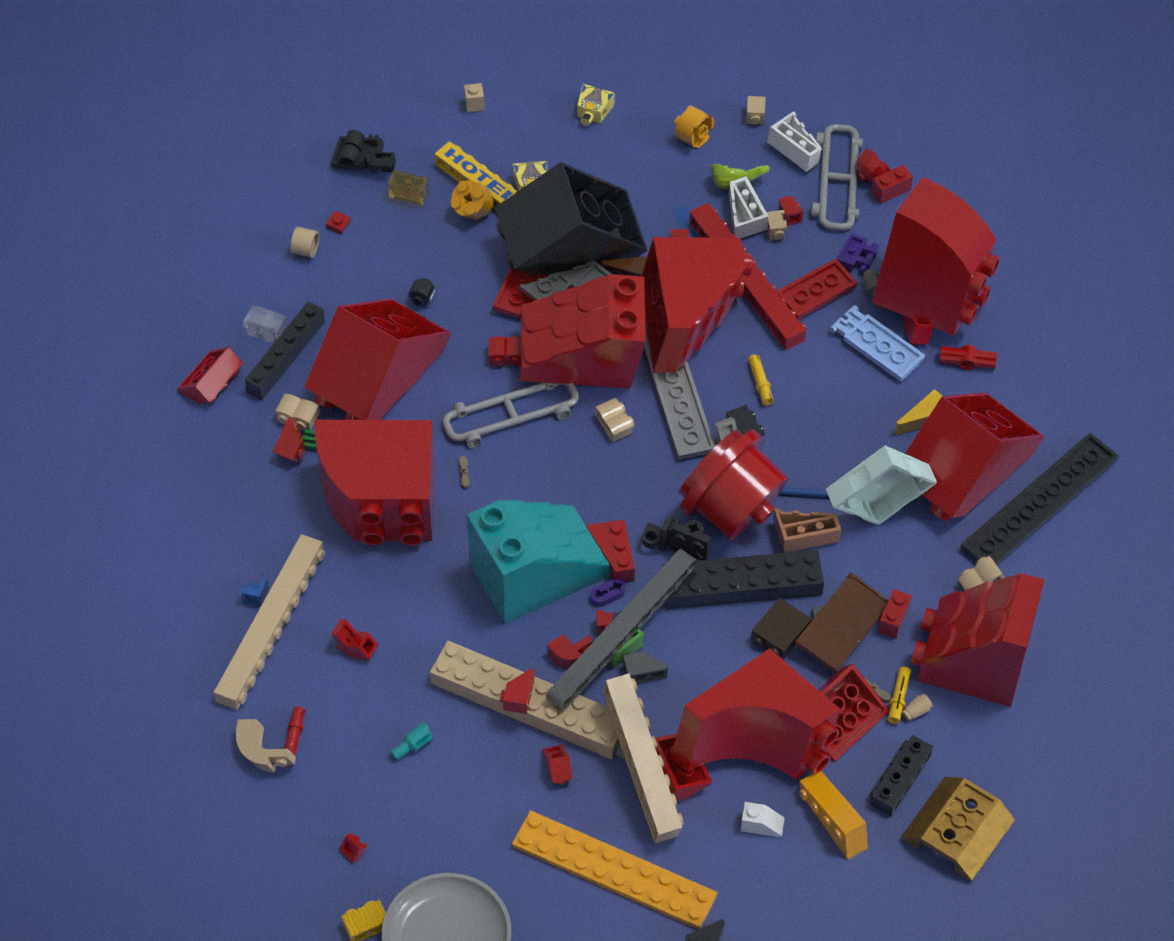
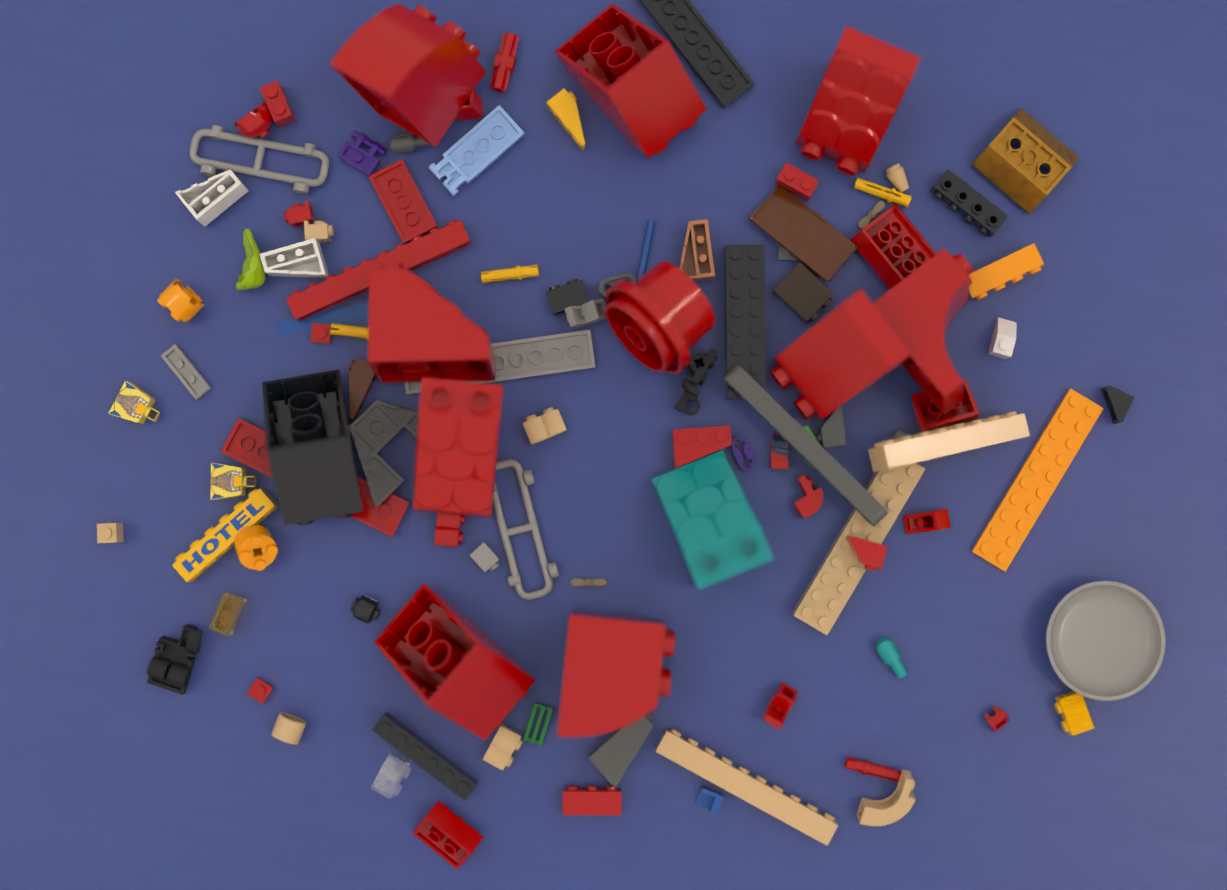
camera: 80 degrees left, 30 degrees up
(249, 490) = (591, 800): none -> red brick
(290, 442) = (543, 755): red slope -> none
(303, 510) = (620, 748): none -> dark grey slope
(480, 382) = (485, 557): none -> light grey brick
(629, 142) = (186, 372): none -> light grey tile
(715, 639) = (838, 357): none -> red slope
(755, 110) = (162, 232): tan brick -> none
(881, 485) = (679, 171): light aqua tile -> none
(984, 571) = (767, 93): tan brick -> none

